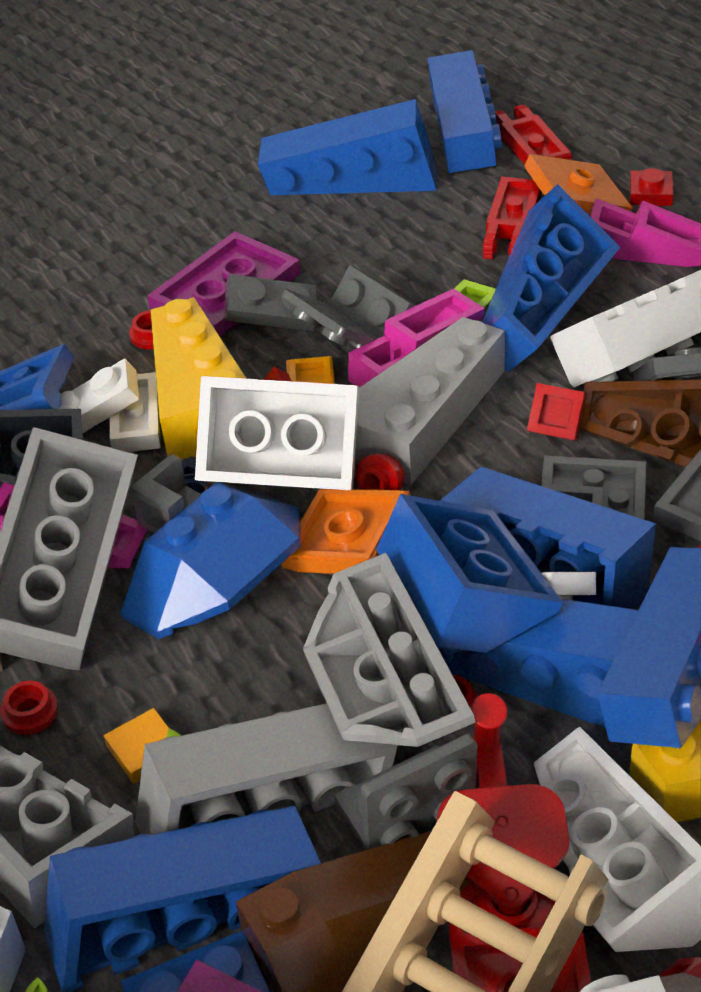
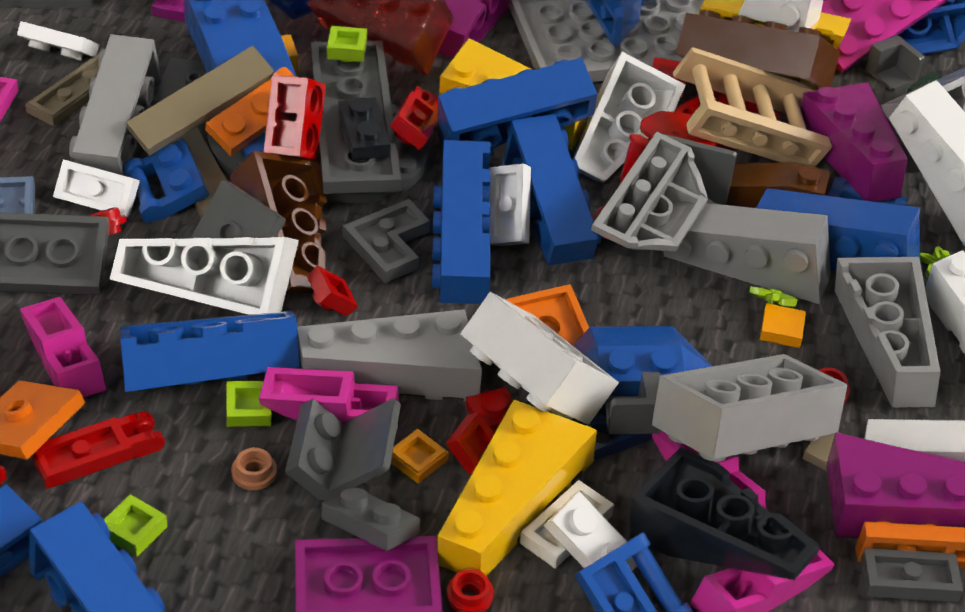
camera: 140 degrees left, 0 degrees up
(402, 279) = (254, 460): none -> nougat plate
(413, 204) = (135, 525): none -> lime plate
(465, 574) = (557, 203): blue slope -> none

